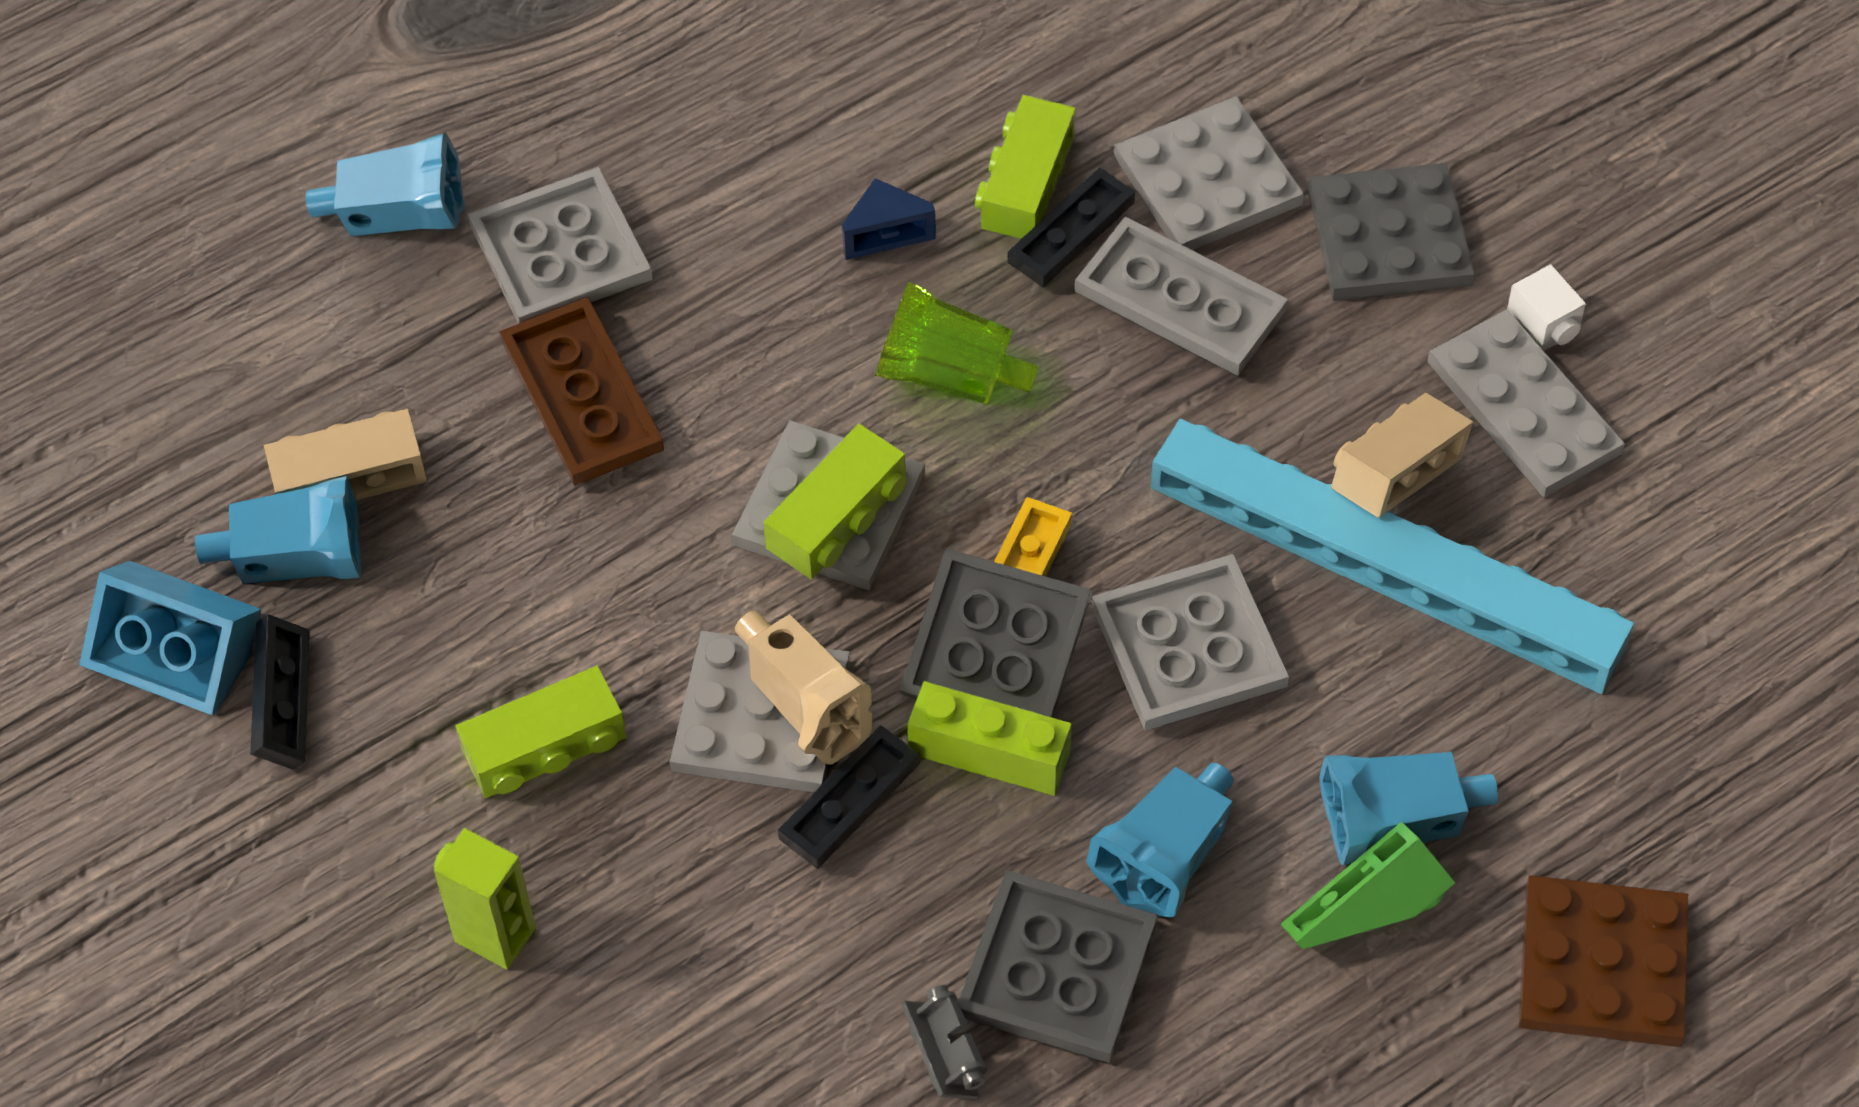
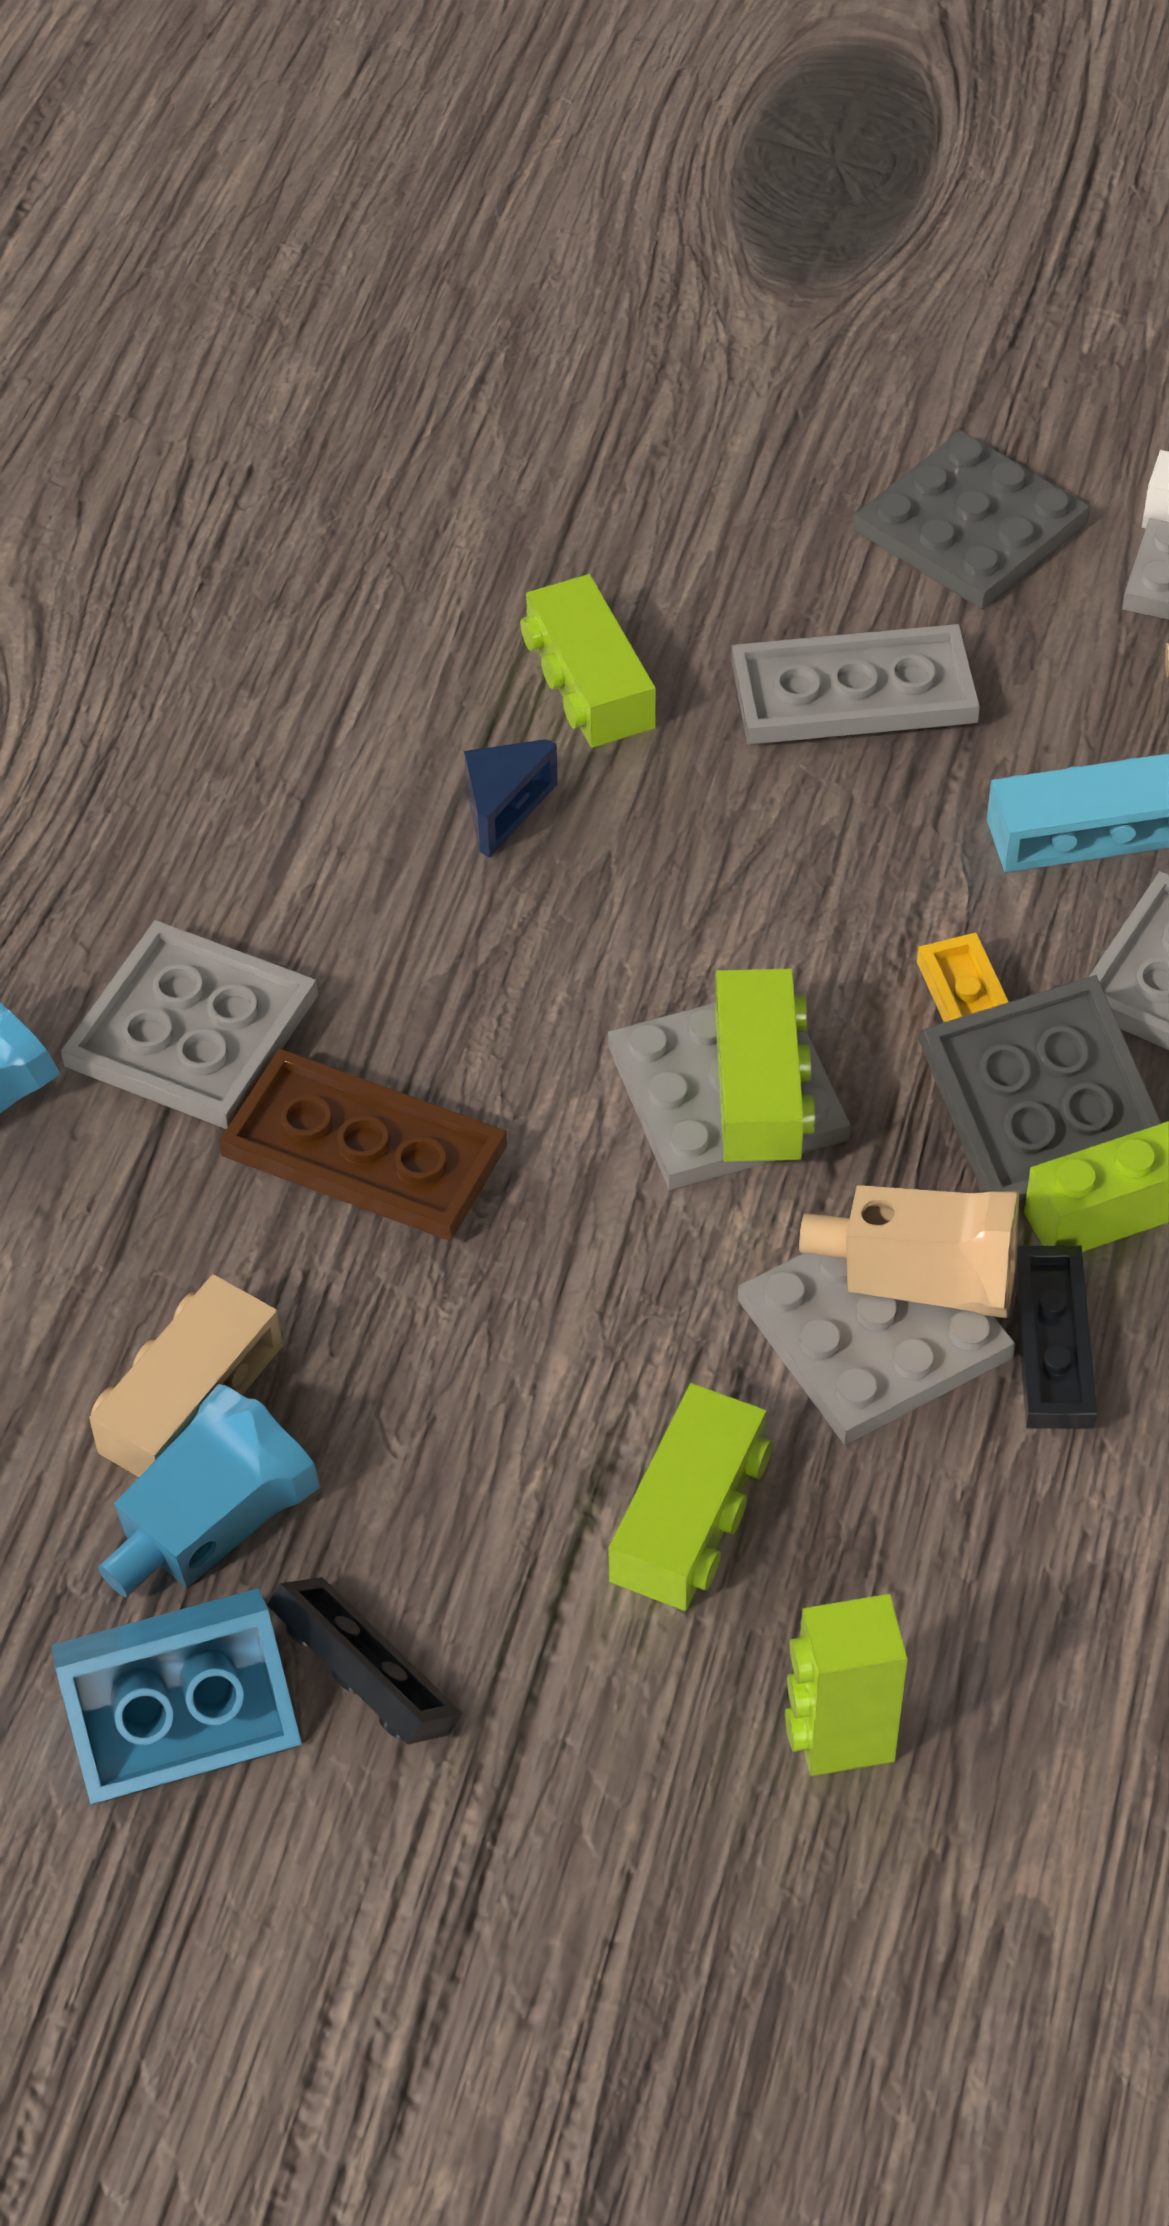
camera: 40 degrees left, 5 degrees down
(950, 349) = (696, 863): clear neon green piece -> none
(1071, 227) = (686, 689): black plate -> none
(1208, 175) = (755, 569): light grey plate -> none

